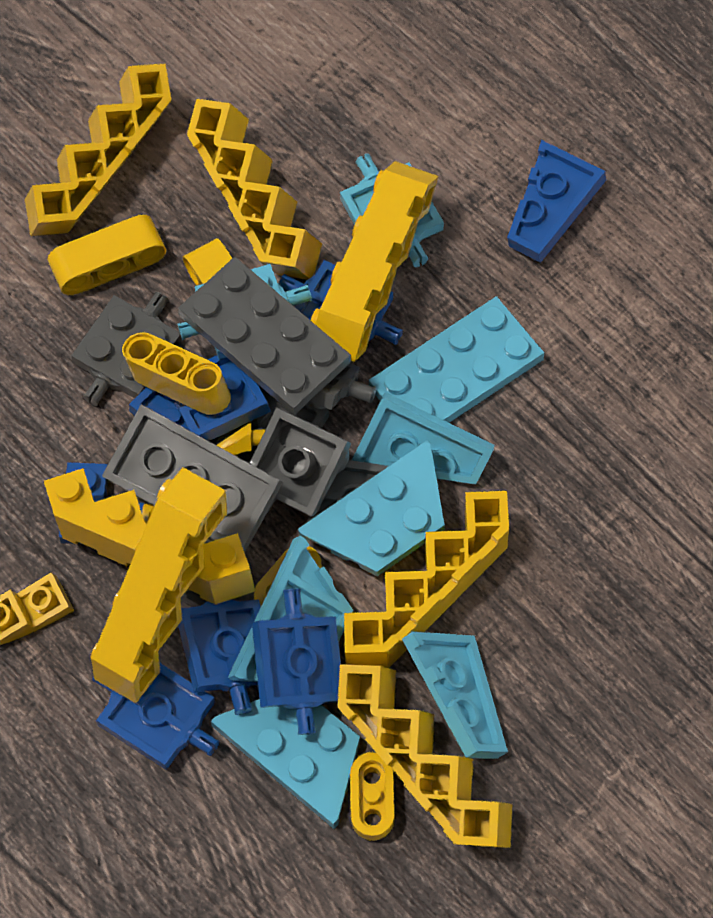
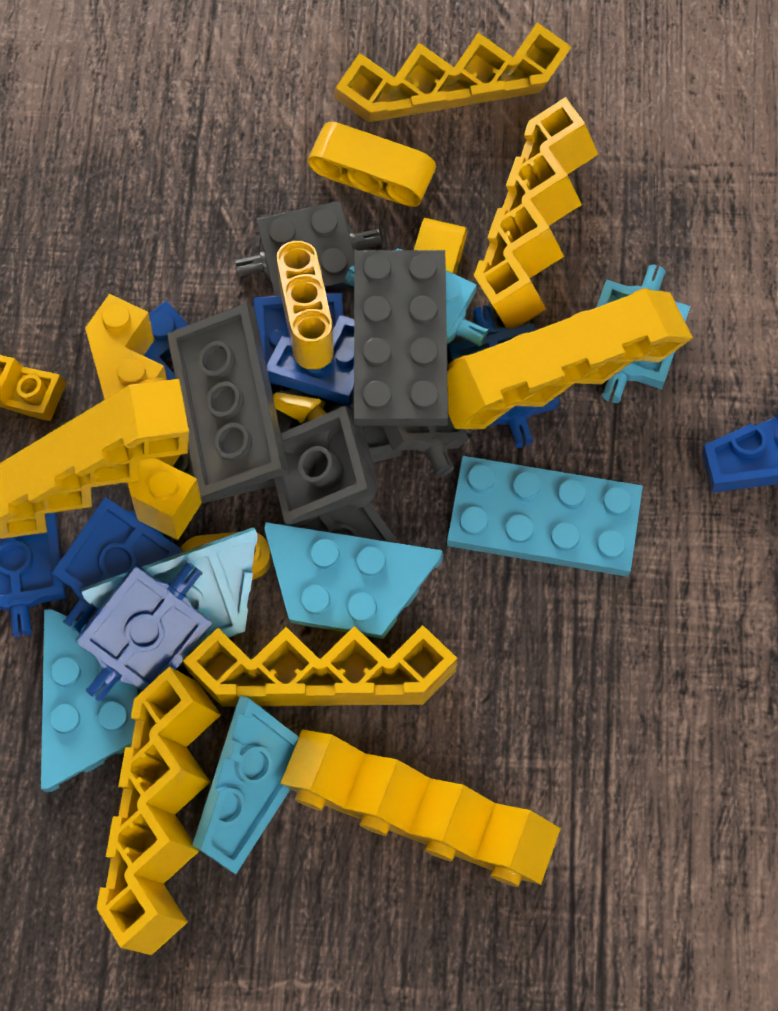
camera: 45 degrees right, 5 degrees up
(371, 798) = (90, 794): yellow plate -> none
(403, 427) = (437, 521): medium azure wing -> none
(559, 610) = (427, 810): none -> yellow brick

